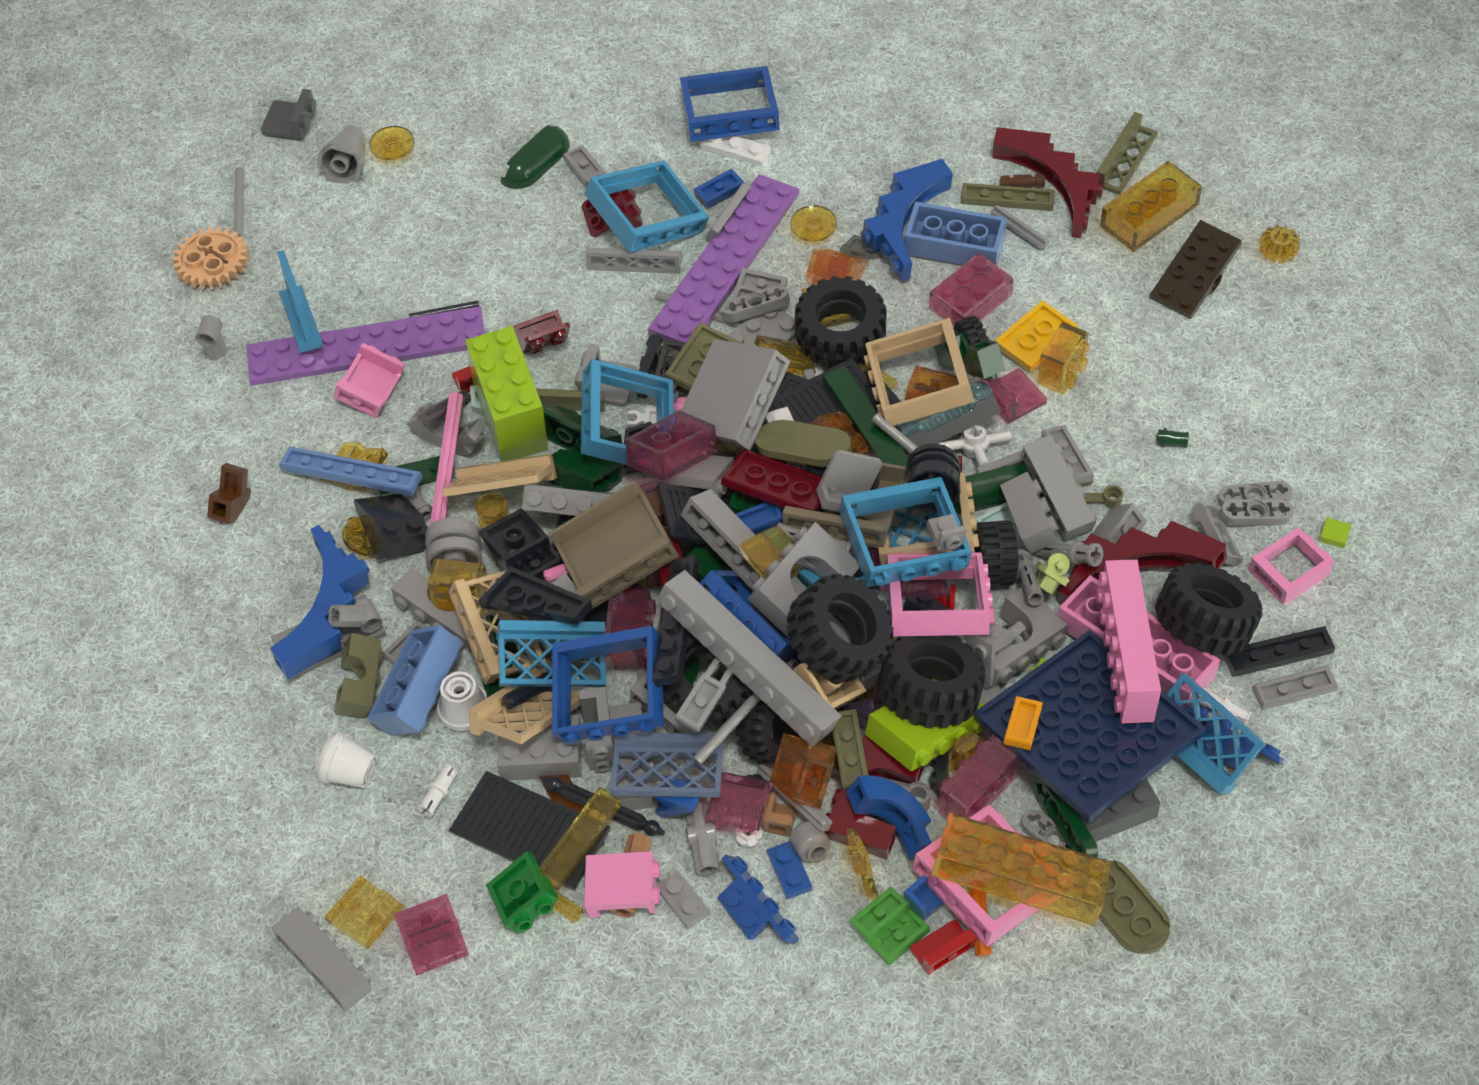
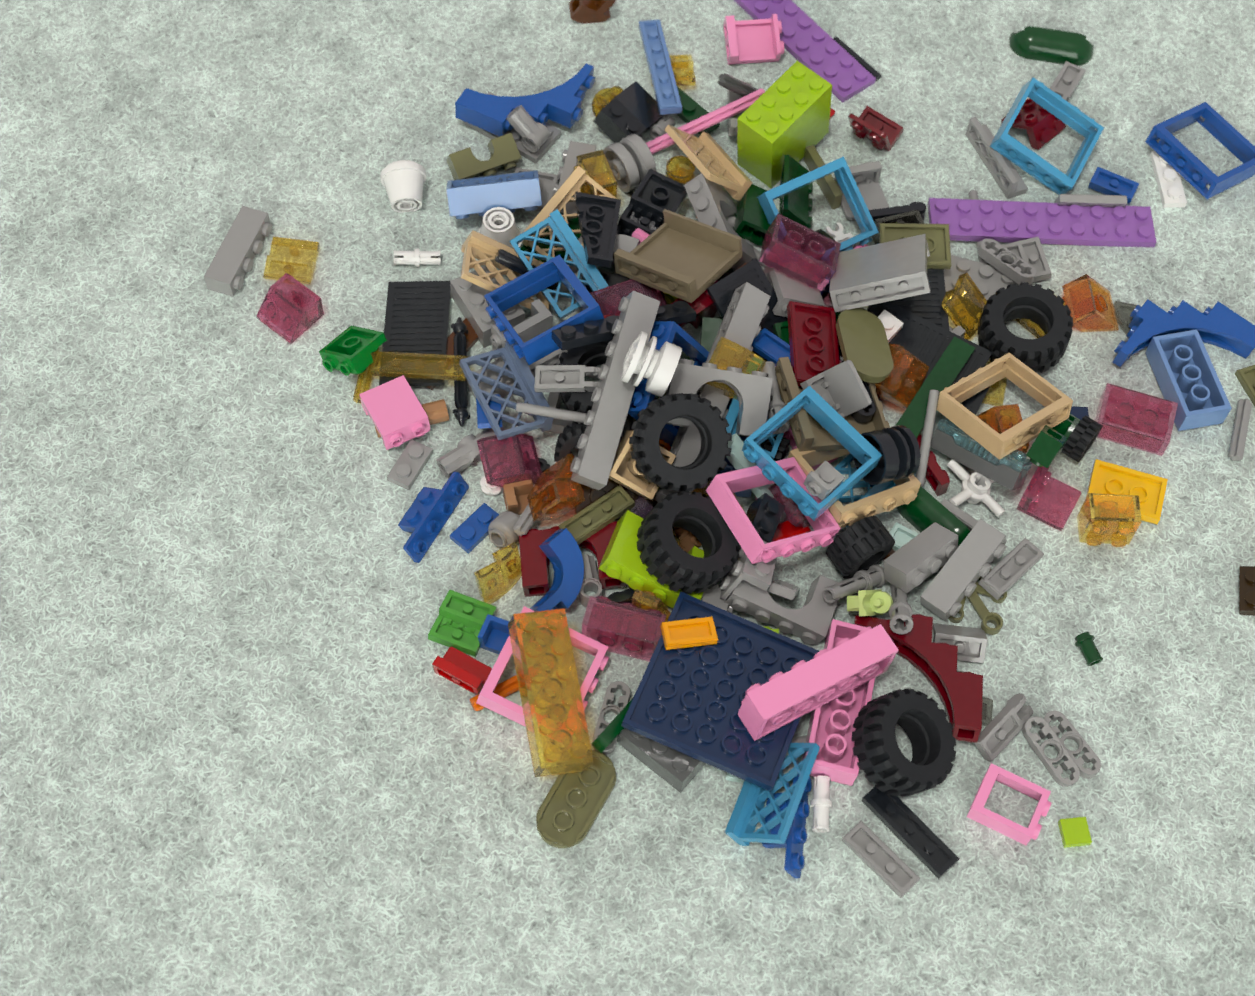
camera: 55 degrees right, 5 degrees up
(756, 605) = (651, 364): none -> white wheel
(813, 216) = (1131, 263): clear yellow dish -> none

